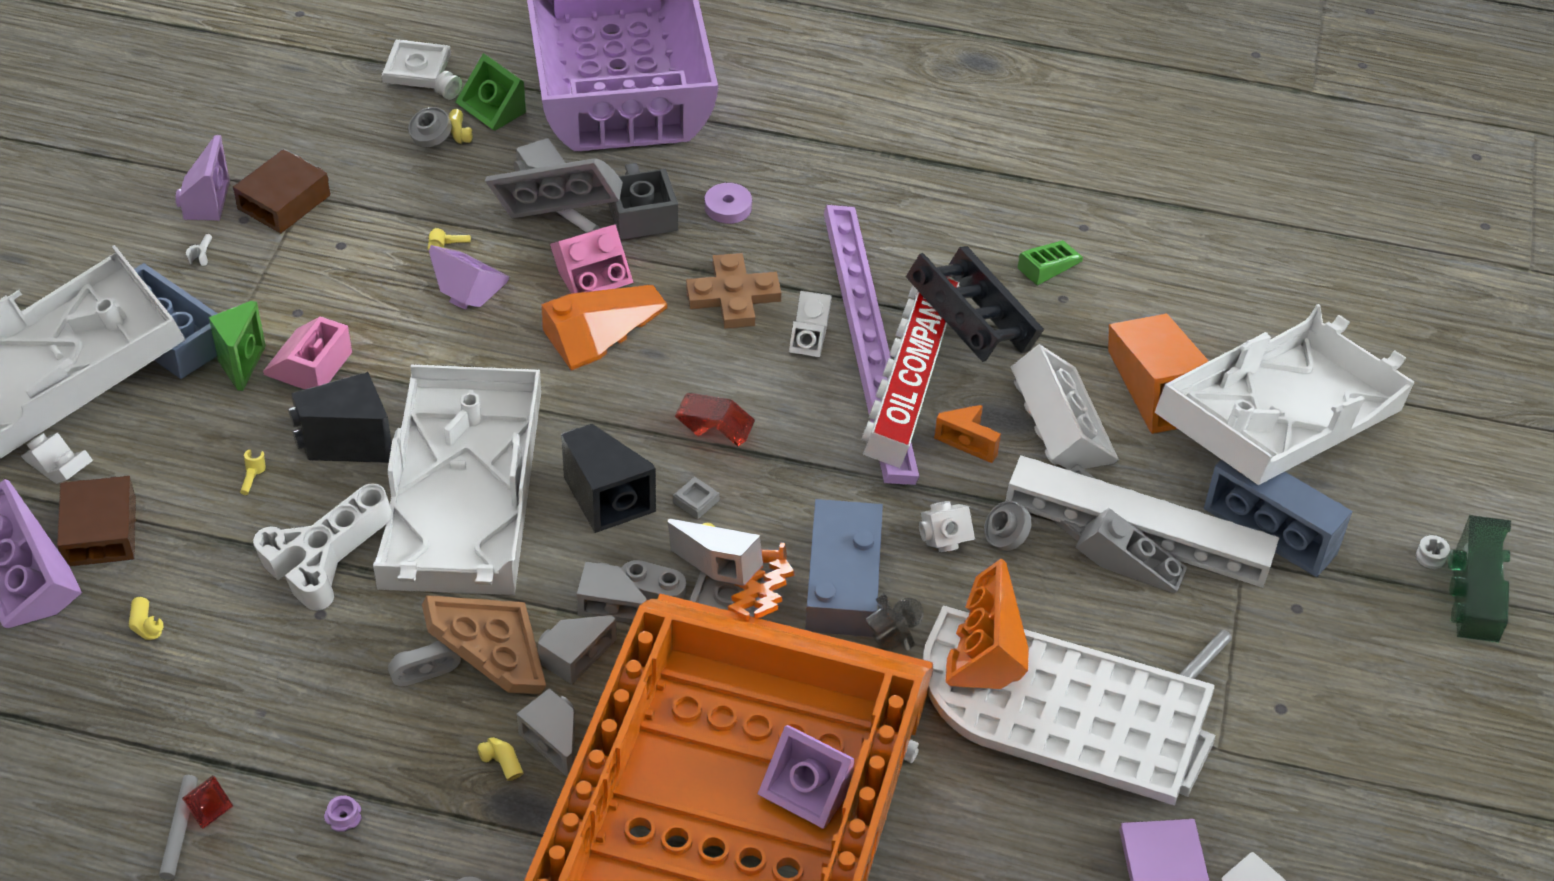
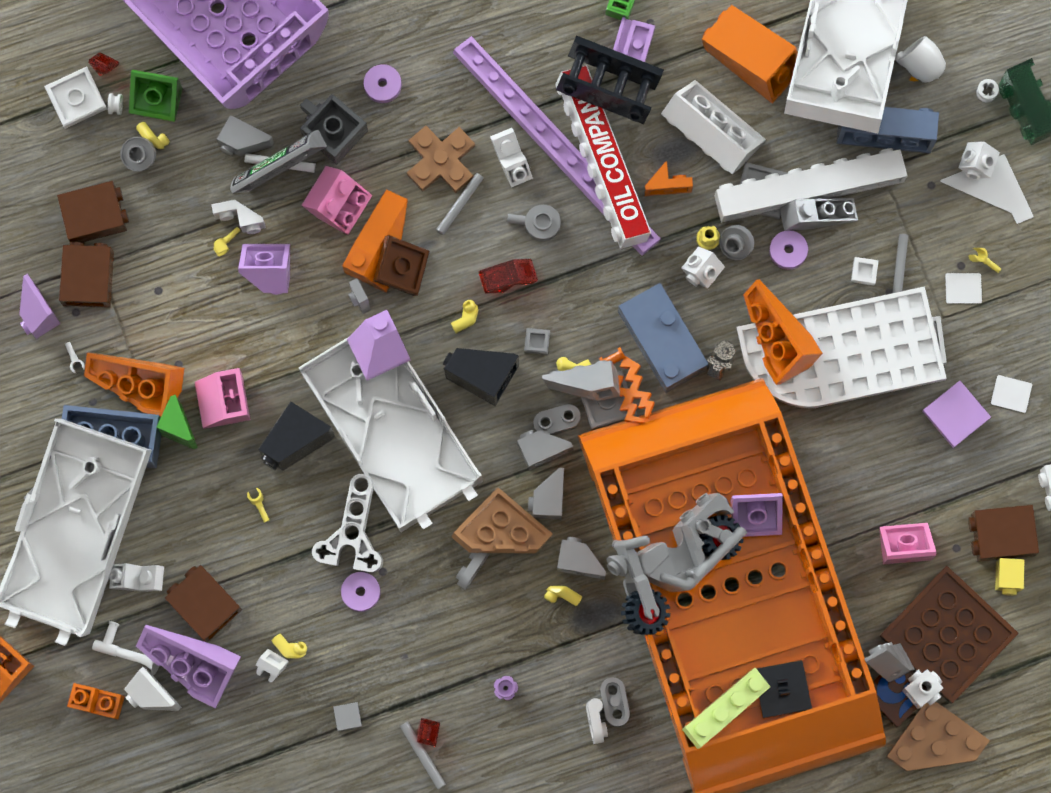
camera: 30 degrees left, 30 degrees up
(106, 622) = (271, 663): none -> white tile
(135, 730) = (347, 716): none -> light grey tile
(233, 283) = (136, 381): none -> orange wedge
(278, 628) = (356, 581): none -> lavender piece
(342, 147) = (93, 212): none -> reddish brown brick
(465, 54) = (102, 63): none -> clear red slope
(483, 226) = (248, 220): none -> white slope
(513, 381) = (378, 345): none -> lavender slope
(534, 339) = (358, 296): none -> light grey plate
(606, 346) = (401, 265): none -> reddish brown tile
(637, 434) = (468, 317): none -> light yellow arm
(646, 755) = (676, 567): none -> light grey piece
(719, 335) = (459, 204): none -> light grey piece
(793, 396) = (540, 222): none -> light grey piece
(979, 503) = (706, 243): none -> light yellow hose
(1036, 294) = (634, 38): none -> lavender plate
(1067, 585) = (788, 260): none -> lavender piece
(1147, 636) = (864, 271): none -> white tile
(1268, 733) = (963, 288): none -> white sticker
(1316, 709) = (983, 257): none -> light yellow hand
(1366, 474) = (922, 60): none -> white piece
(1375, 603) = (978, 160): none -> white brick
(1382, 649) = (999, 190): none -> white sticker

